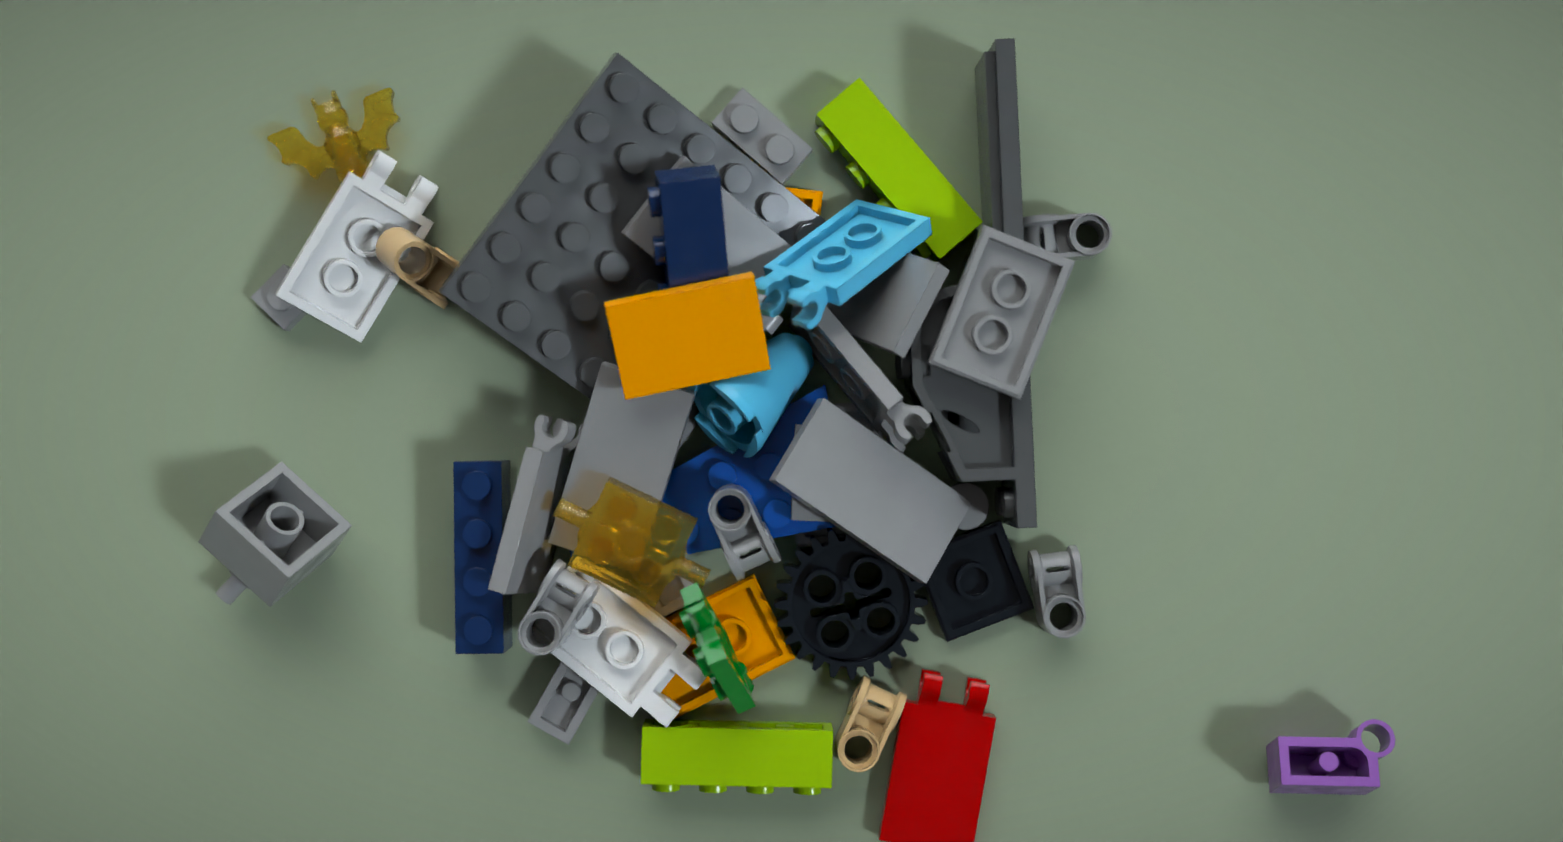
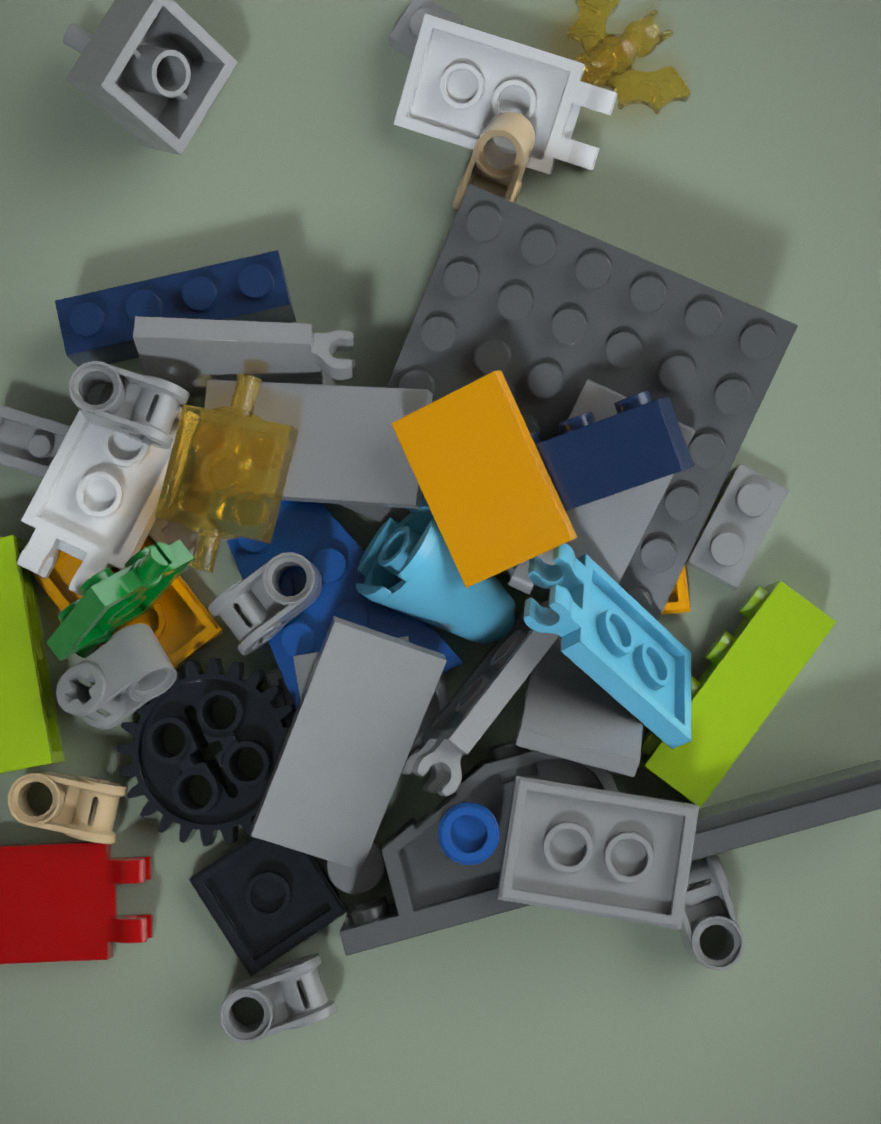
camera: 70 degrees right, 5 degrees down
(777, 662) = (121, 675): none -> light grey piece
(964, 410) = (468, 833): none -> blue tile

